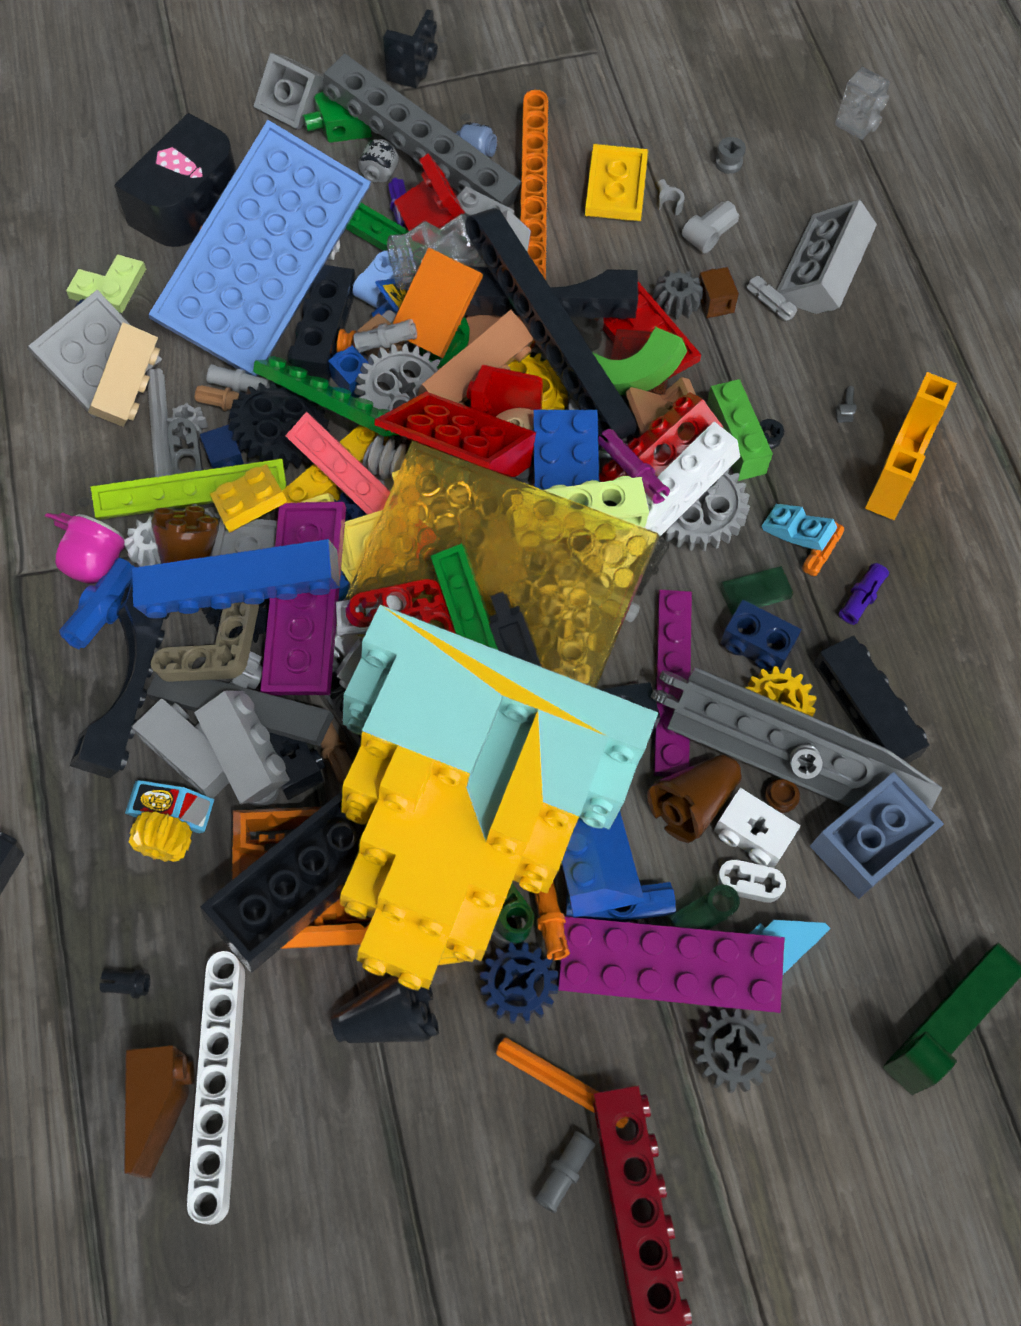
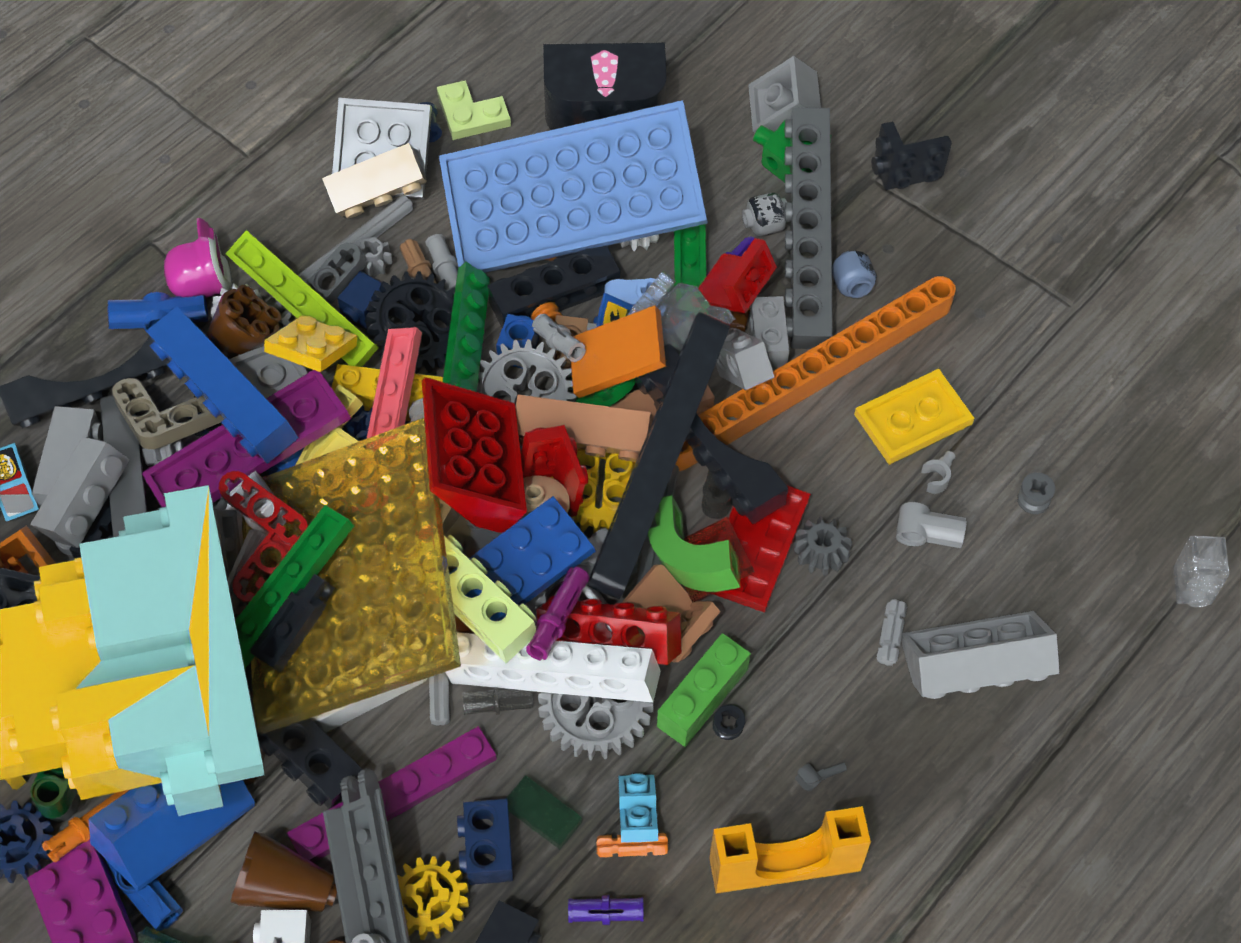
camera: 55 degrees right, 5 degrees down
(718, 292) = (853, 578): reddish brown brick -> none

